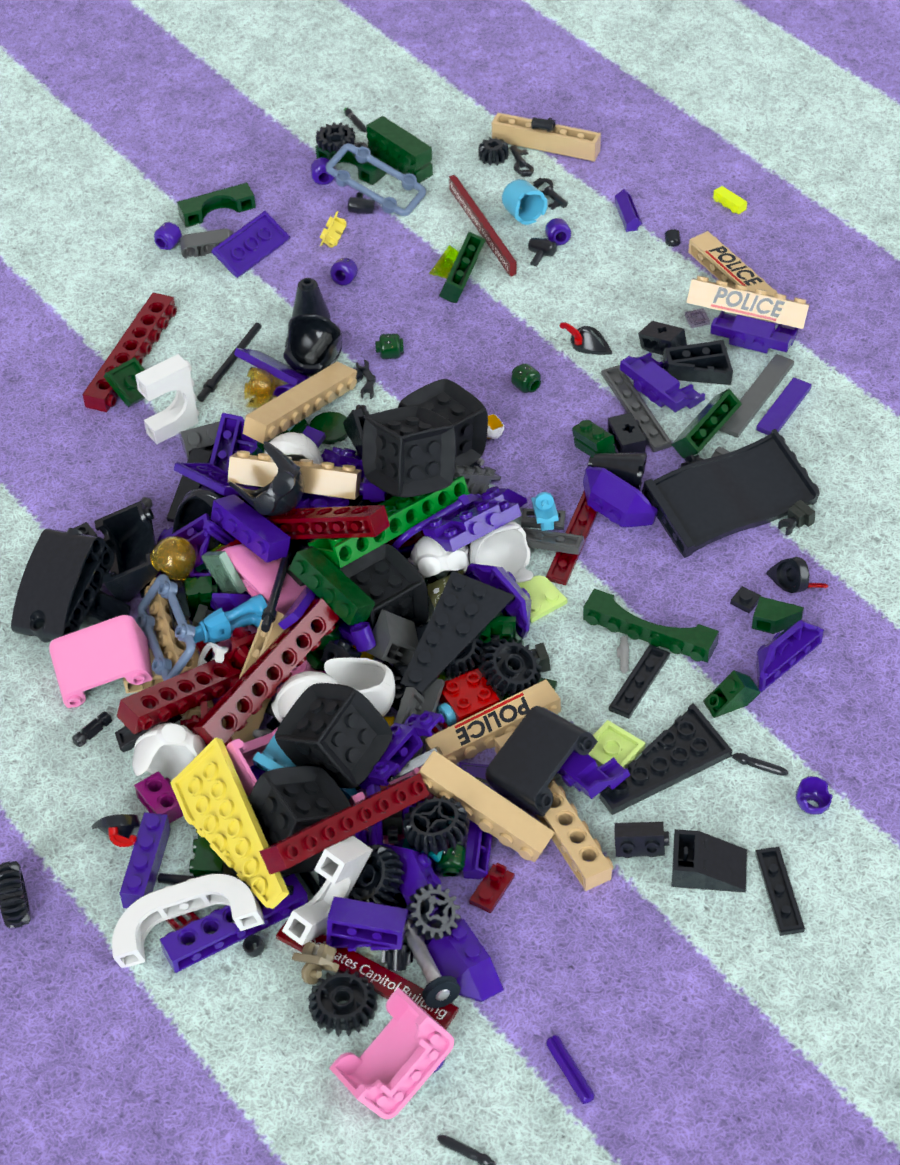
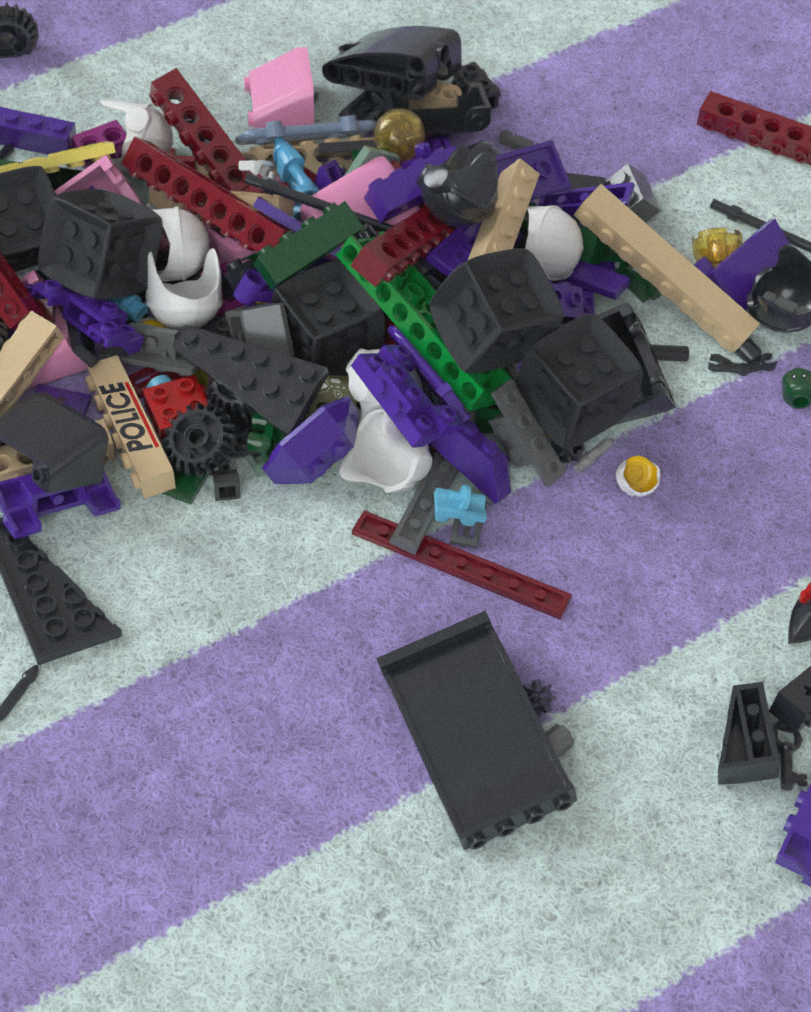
camera: 90 degrees right, 5 degrees up
(92, 729) = (213, 101): black axle -> none
(119, 828) = (72, 108): black piece -> none
(124, 382) = (732, 135): dark green tile -> none
(182, 412) = (687, 130): white arch -> none
(332, 425) = (658, 319): dark green tile -> none
(526, 378) = (730, 528): dark green head -> none
(544, 597) = (333, 499): yellowish green plate -> none
(592, 438) = (593, 584): dark green brick -> none
(615, 743) = (74, 540): yellowish green plate -> none
(617, 499) = (482, 585): dark purple wedge -> none
(623, 654) = (224, 576): light grey piece -> none
(626, 465) = (530, 605): black cone -> none
(627, 433) = (609, 629): black brick -> none
(635, 404) = (671, 655): dark grey tile -> none
(639, 681) = (177, 587): black tile -> none
(658, 384) = (708, 678): dark purple bracket -> none
(694, 642) = (292, 558): dark green arch -> none
(706, 424) = (618, 724): dark green brick -> none
(731, 694) = (125, 675): dark green slope -> none
(745, 599) = (290, 725): black plate -> none
(758, 395) = (691, 813): dark grey tile -> none
(775, 616) = (249, 745): dark green slope -> none
(784, 406) = (663, 844): dark purple tile -> none
(786, 651) = (179, 742): dark purple wedge -> none
(792, 575) = (310, 787): black piece -> none
(798, 515) = (431, 814): pearl dark grey piece -> none

